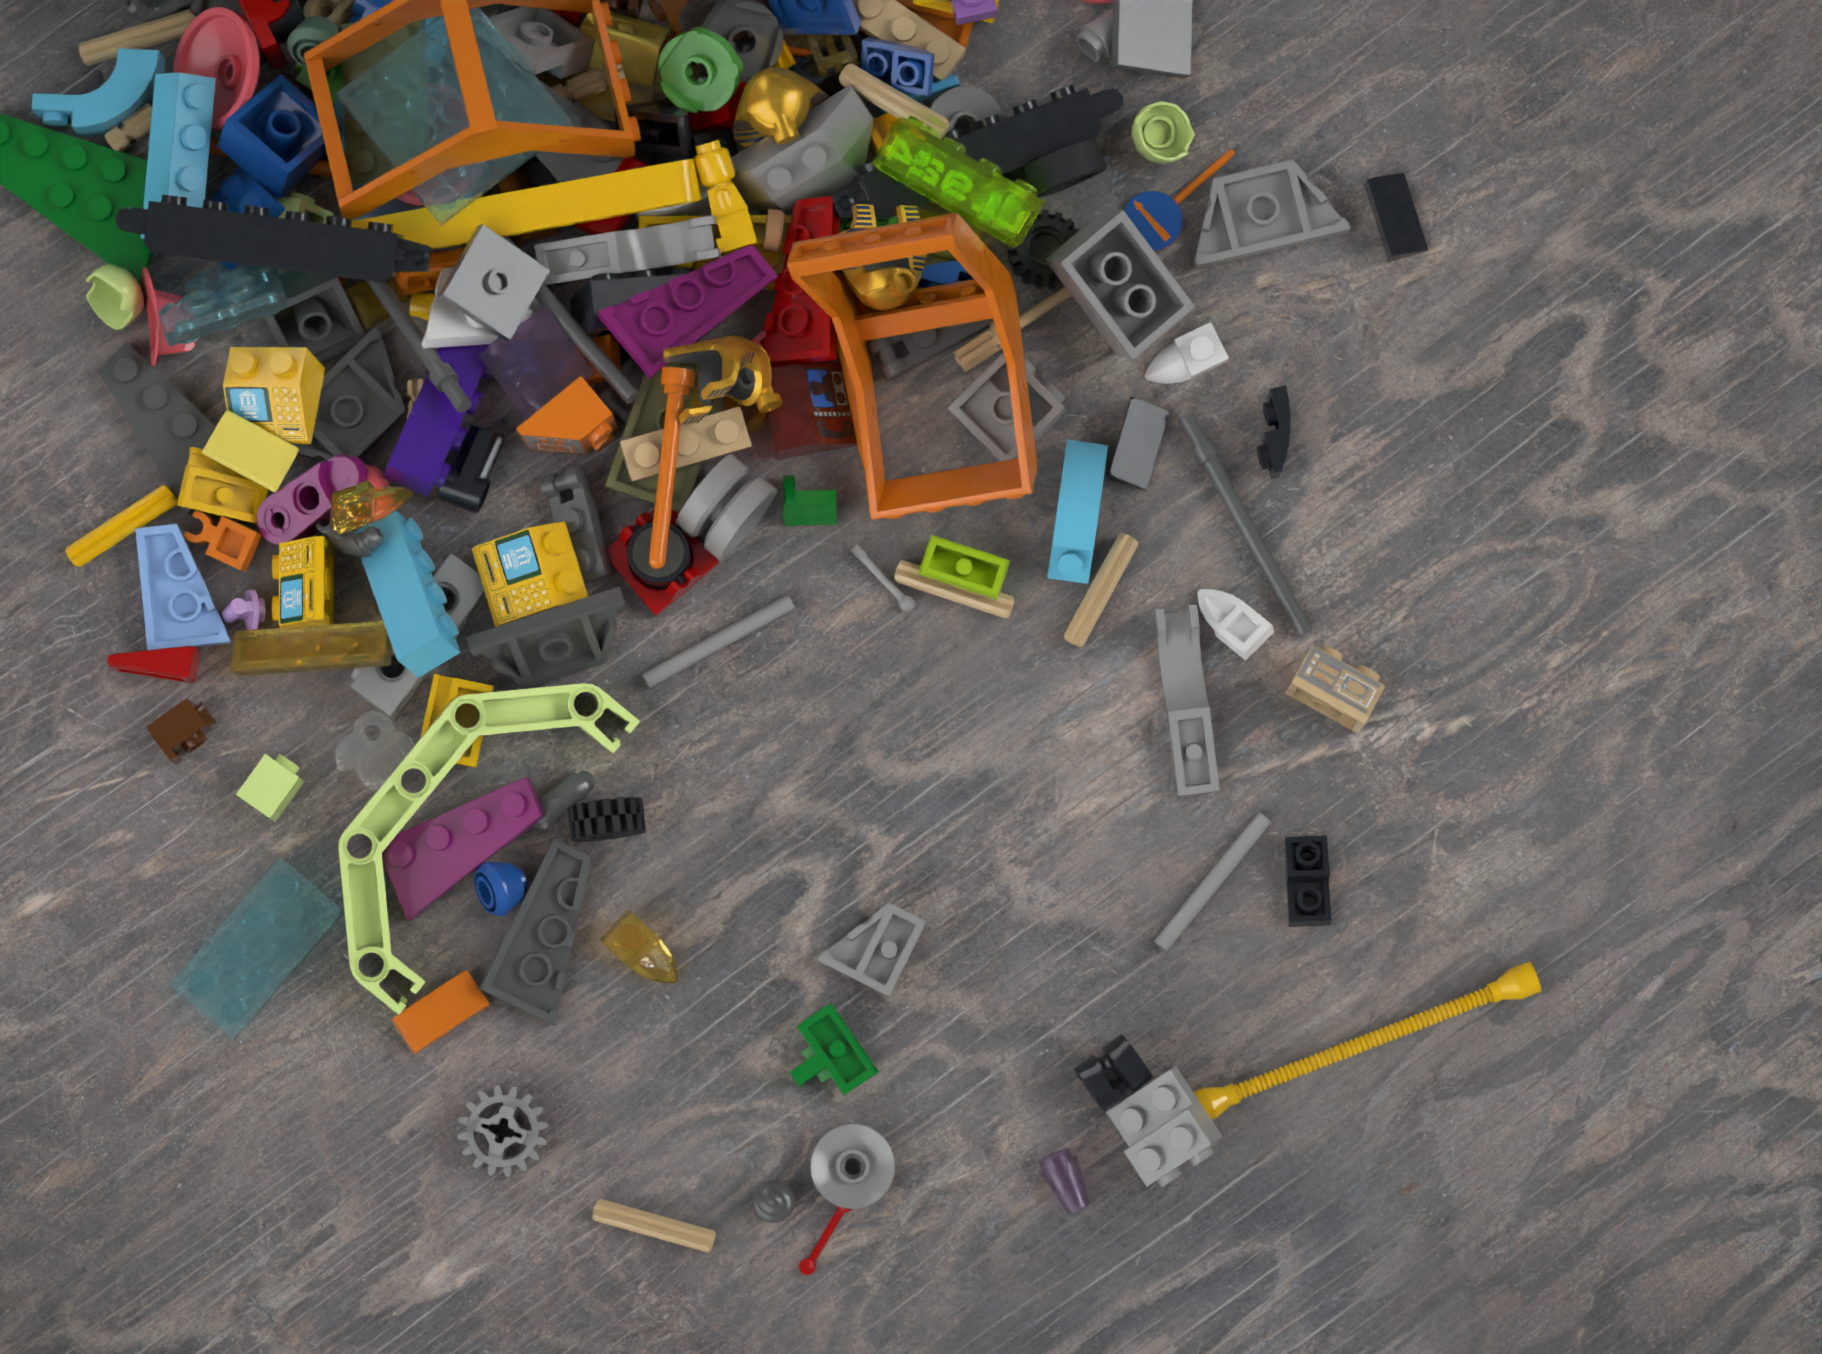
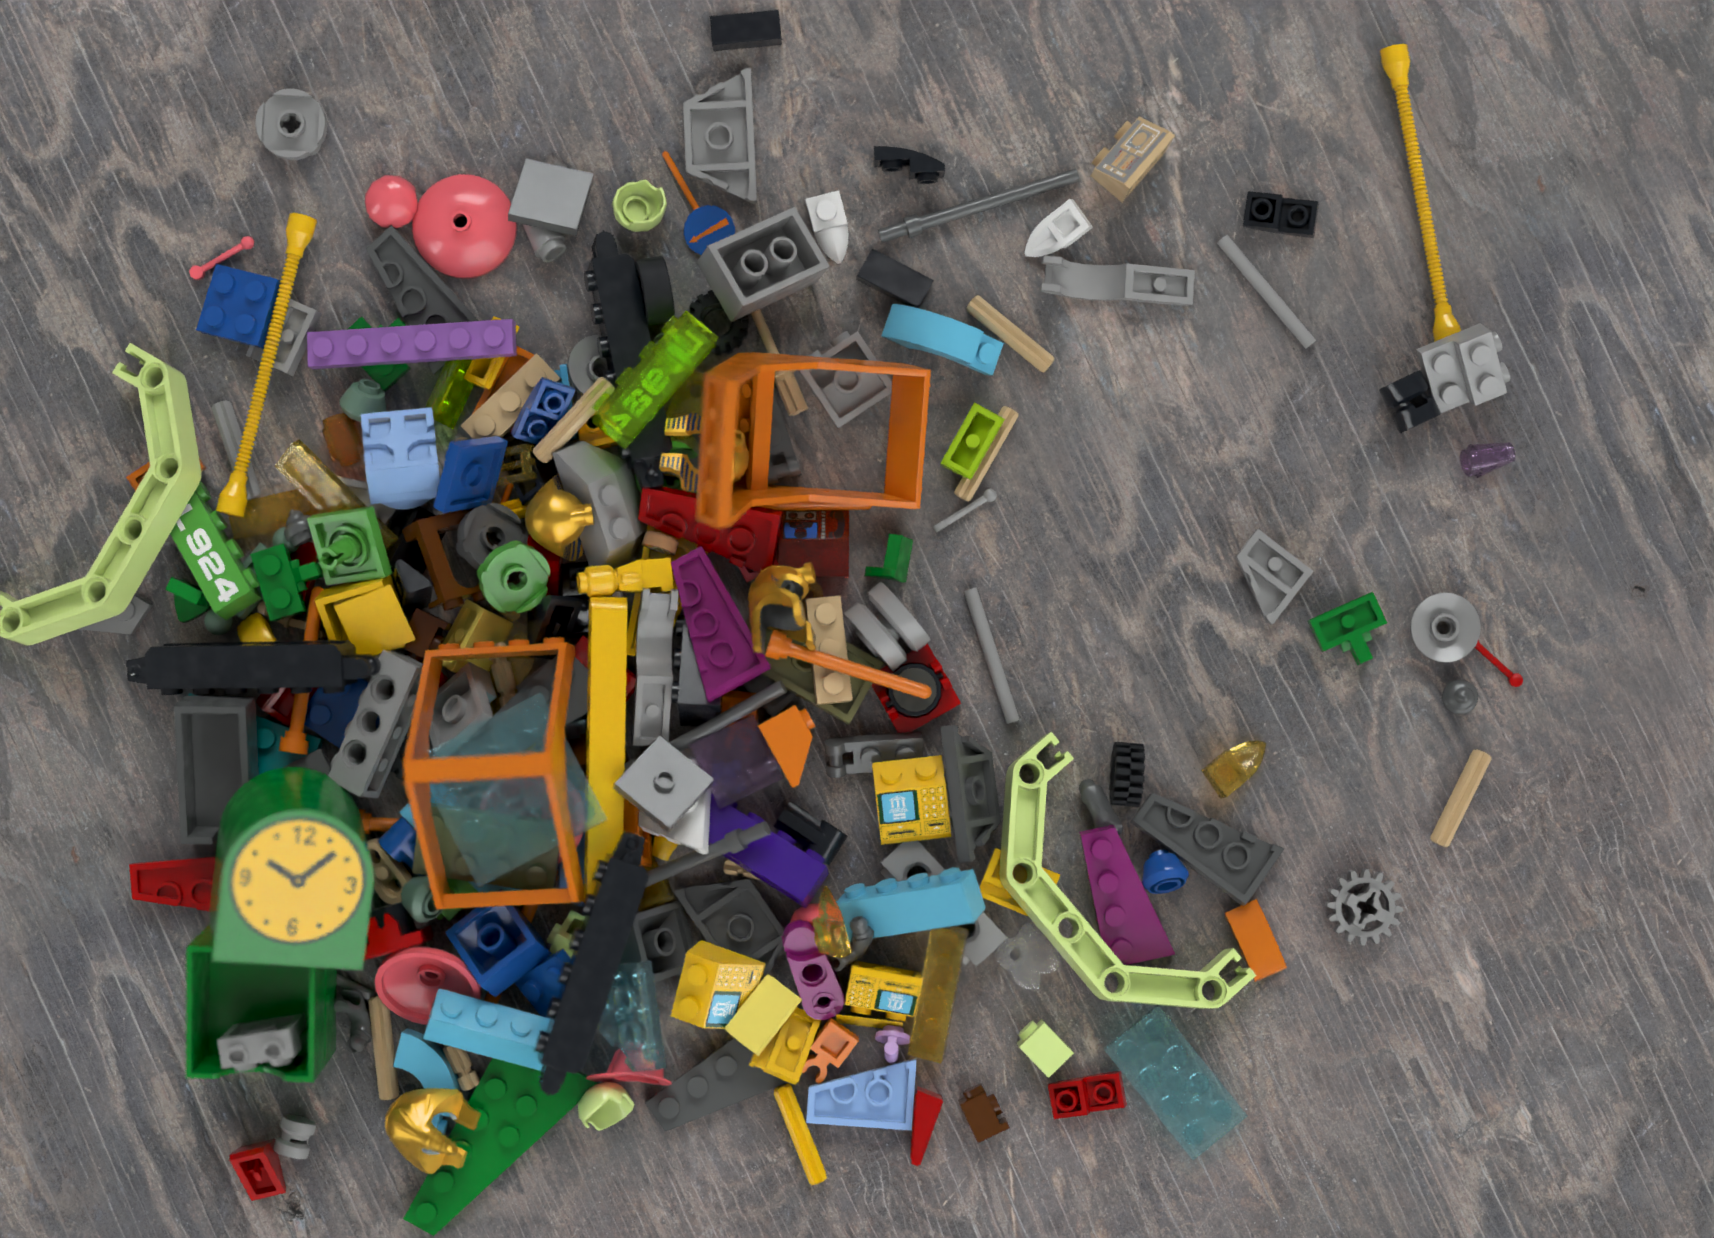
camera: 90 degrees left, 5 degrees up
(39, 87) = (413, 1133): none -> pearl gold piece
(224, 849) = (1087, 1094): none -> red slope
(264, 575) = (868, 1022): none -> yellow sticker

